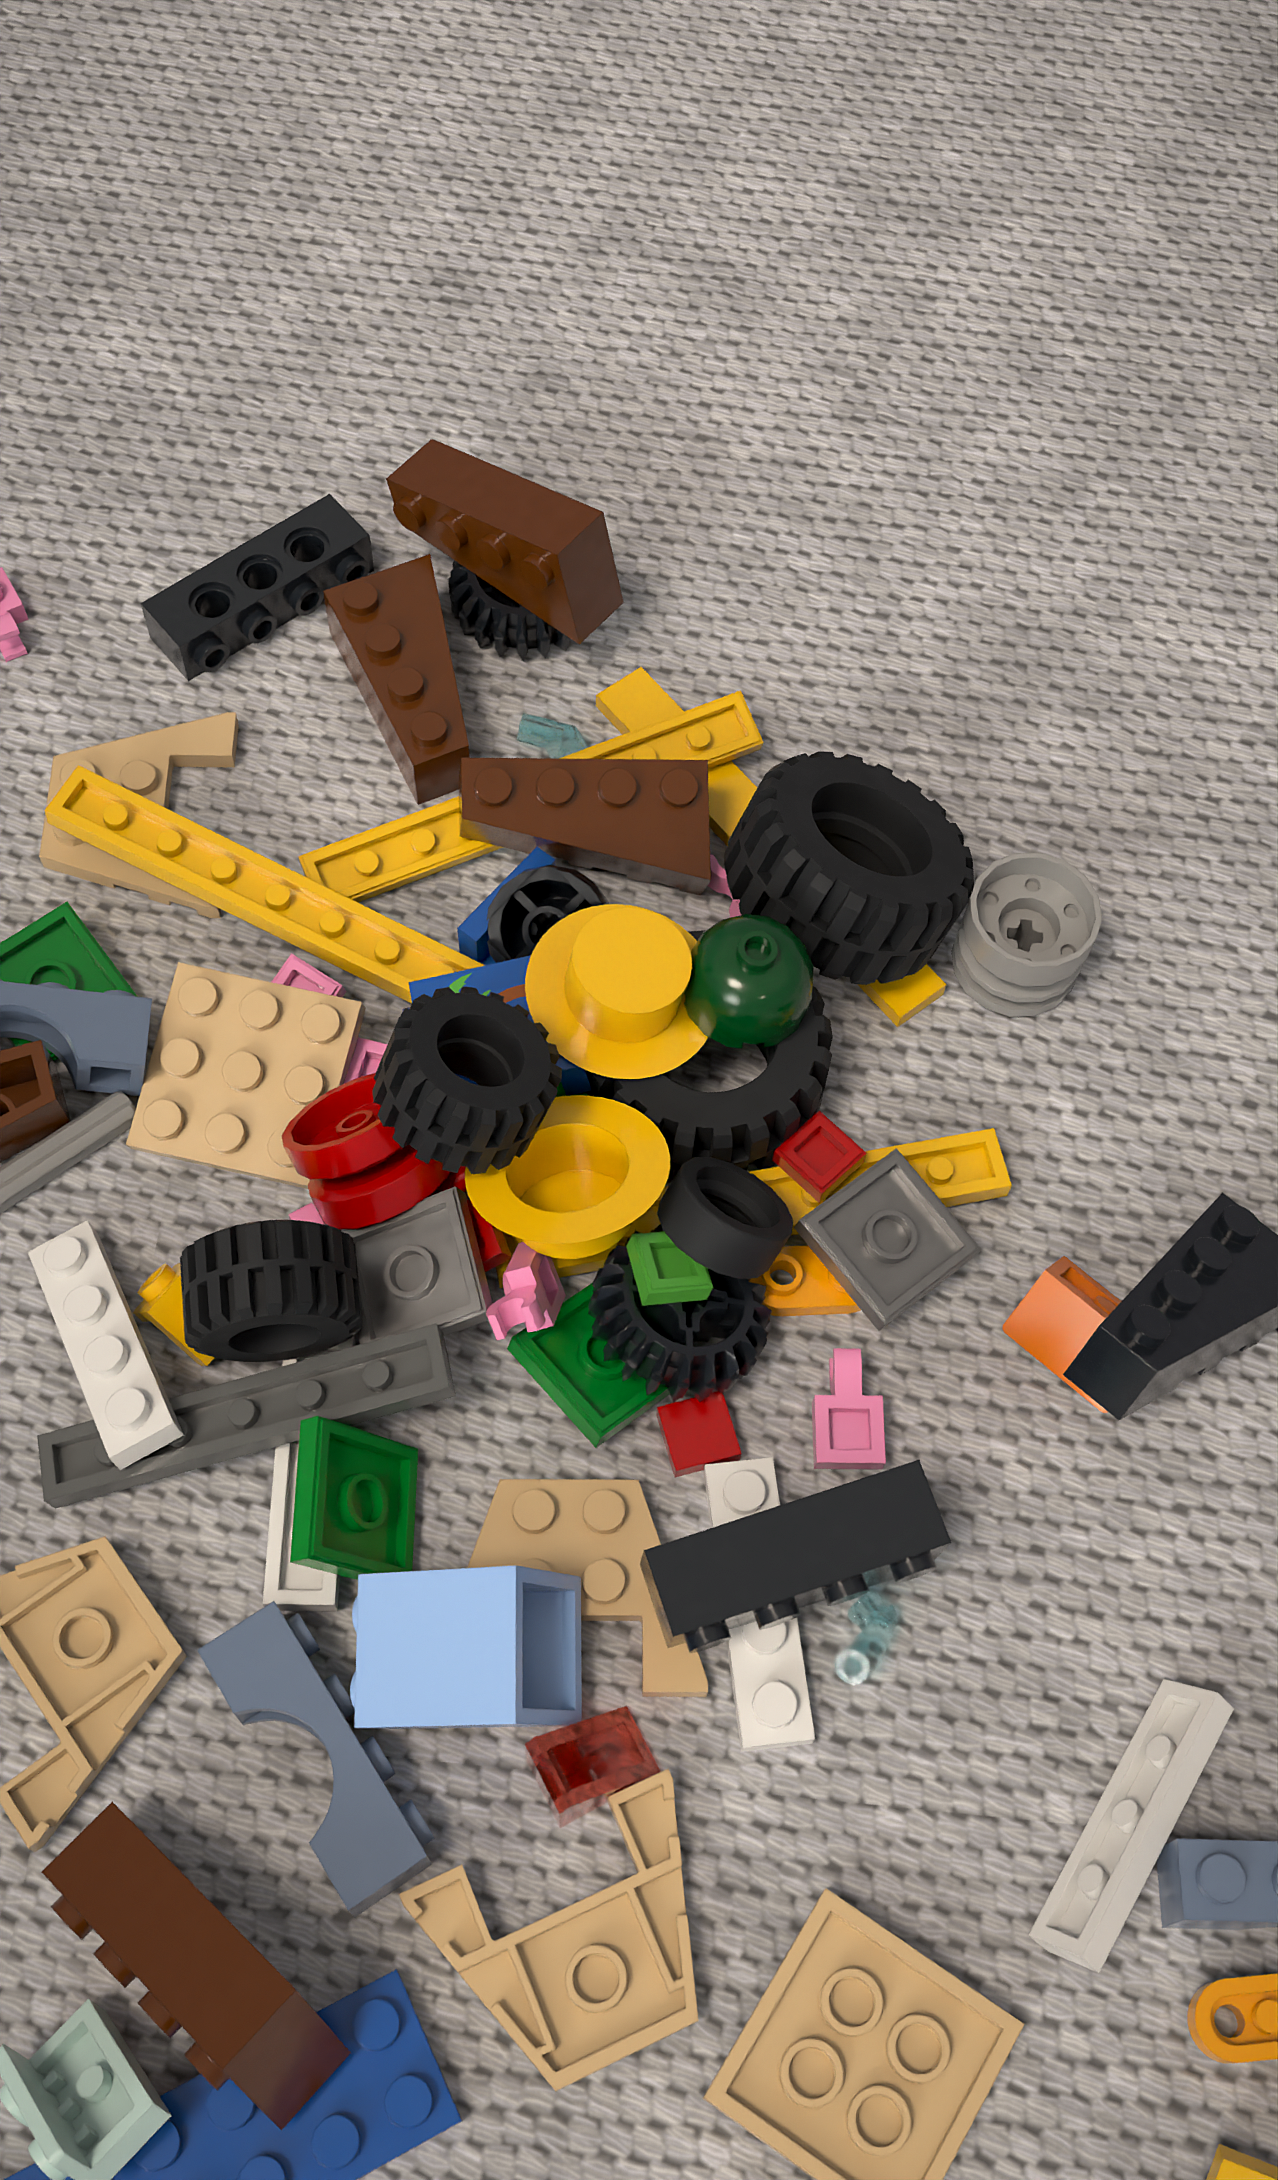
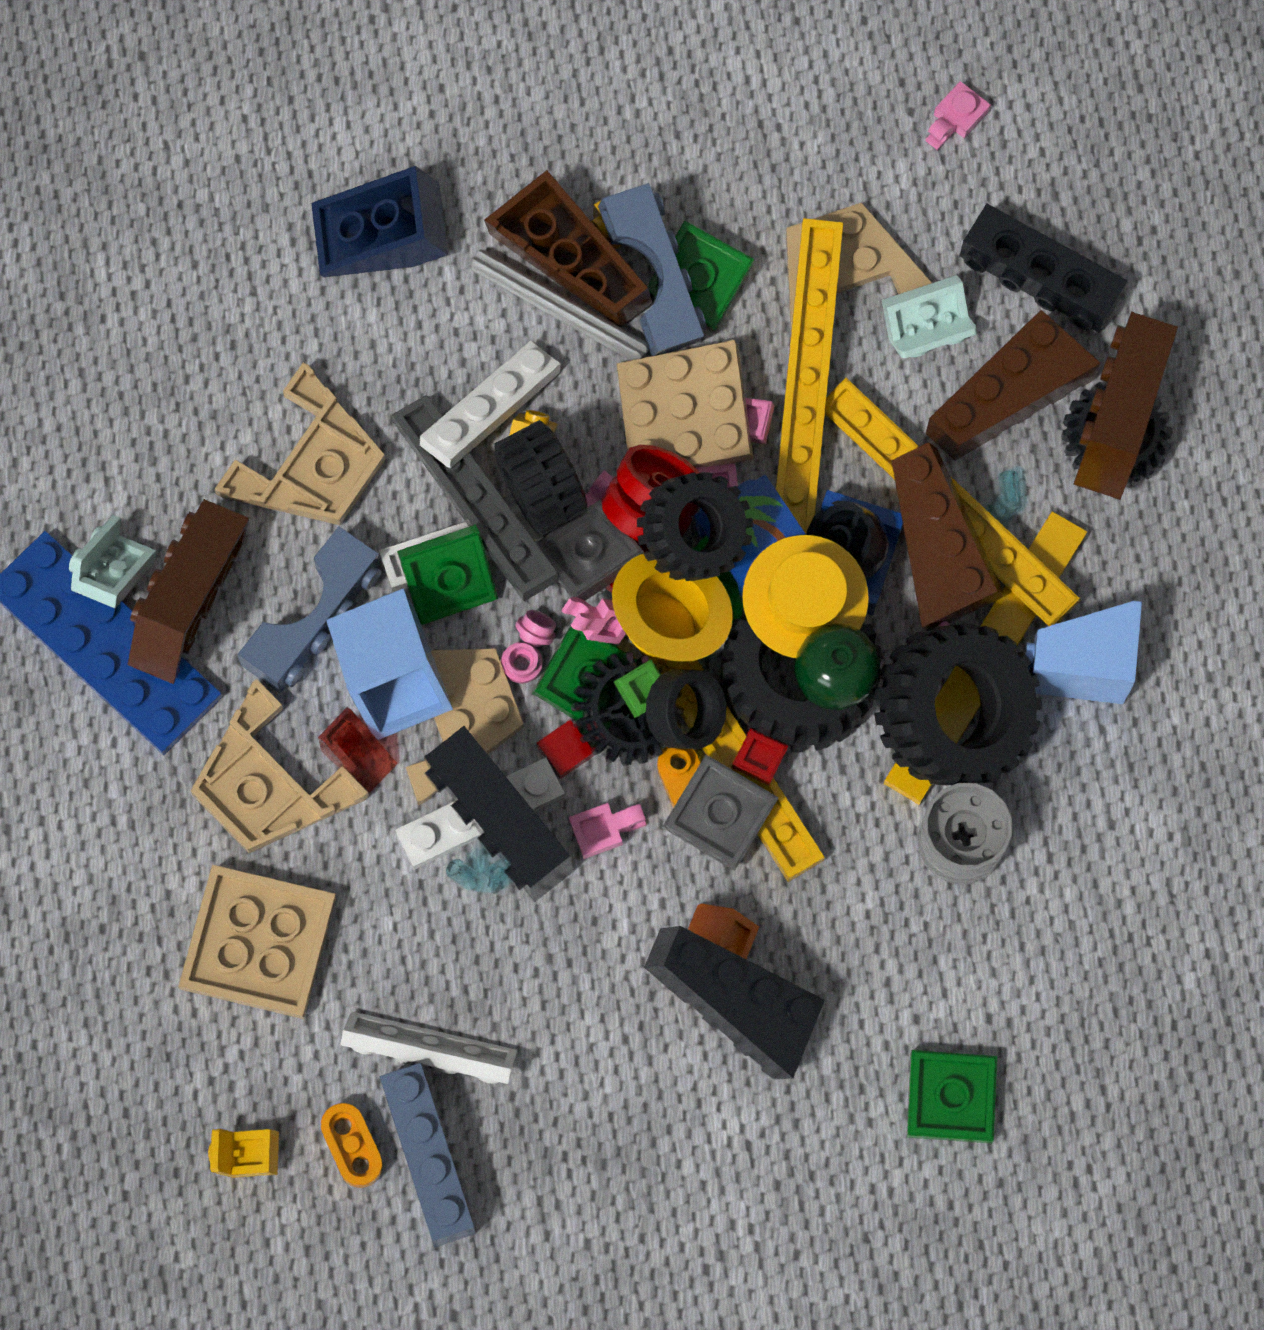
camera: 70 degrees right, 10 degrees up
(263, 732) = (928, 317): none -> light aqua bracket
(493, 1405) = (536, 628): none -> bright pink plate
(531, 1429) = (526, 651): none -> bright pink plate
(829, 686) = (1088, 655): none -> light blue slope

